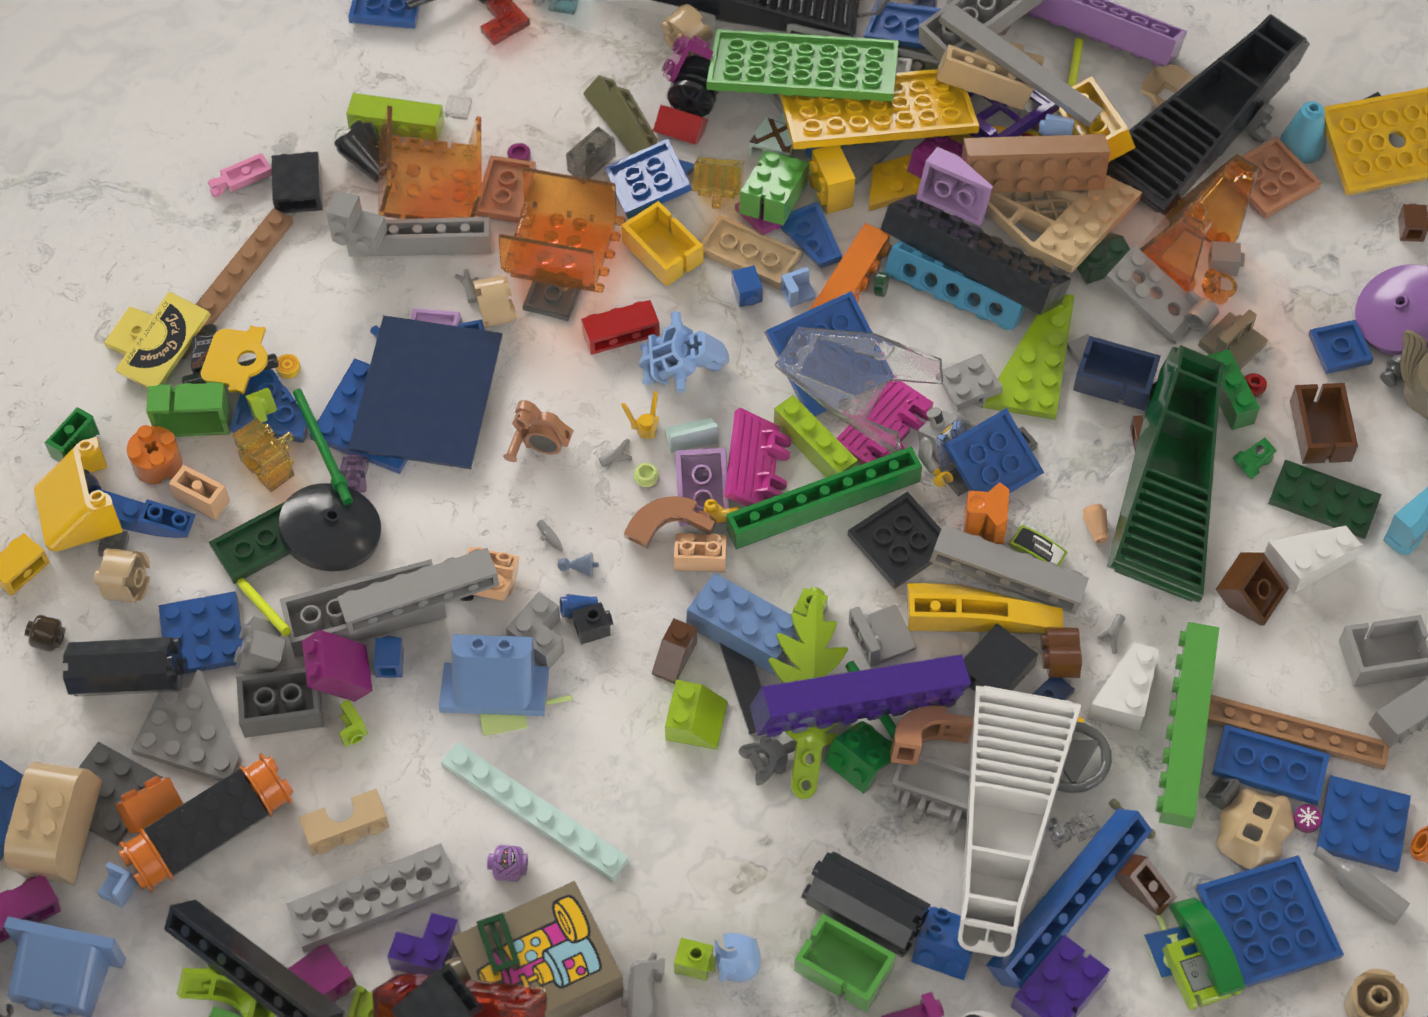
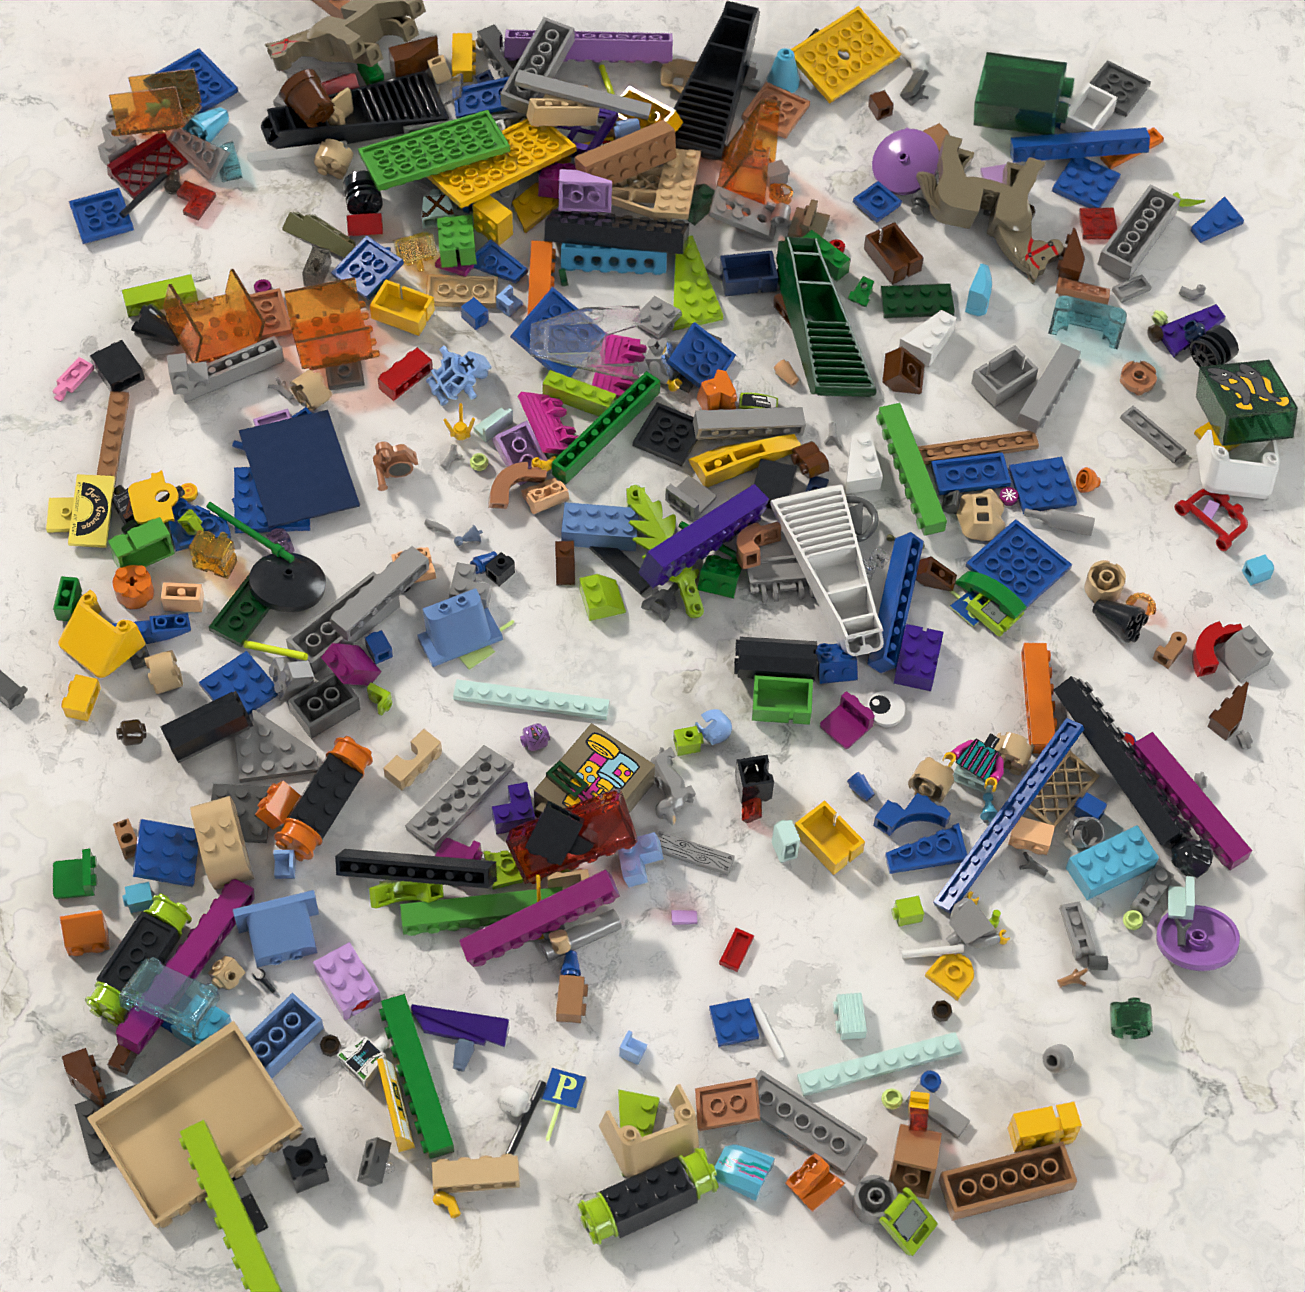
camera: 30 degrees left, 0 degrees up
(681, 48) = (343, 175): magenta bracket -> none

